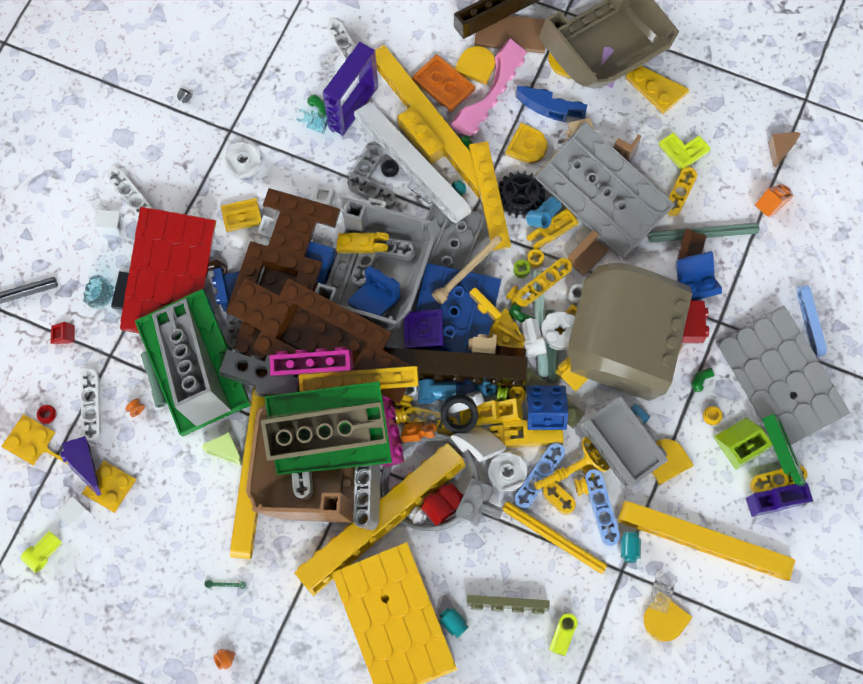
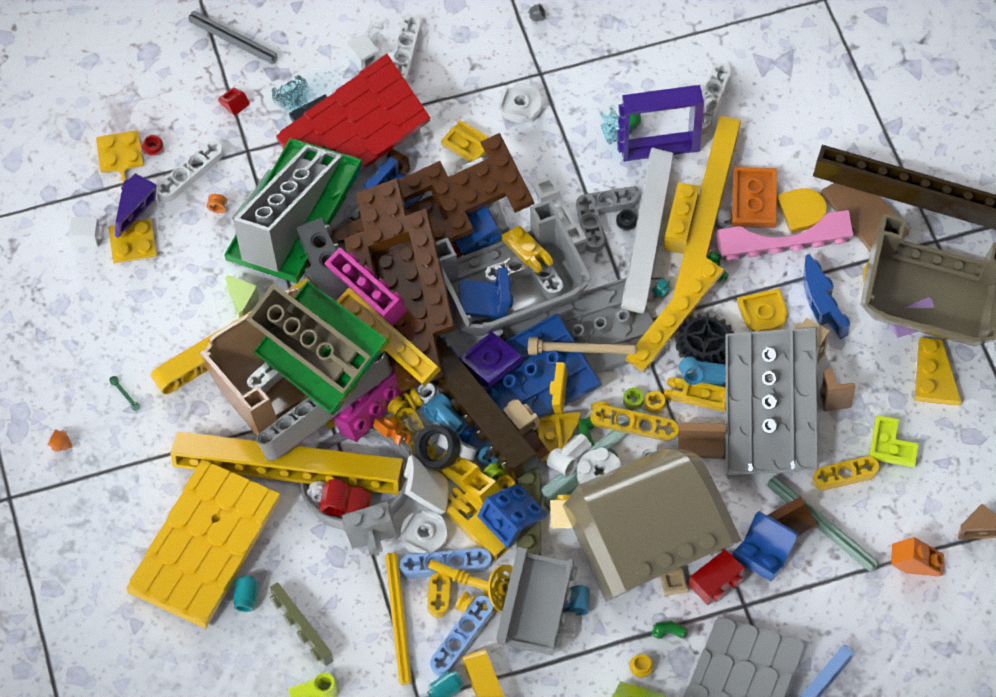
camera: 50 degrees right, 10 degrees down
(37, 556) = (26, 235): neon yellow piece -> none
(677, 461) = (564, 665): yellow tile -> none

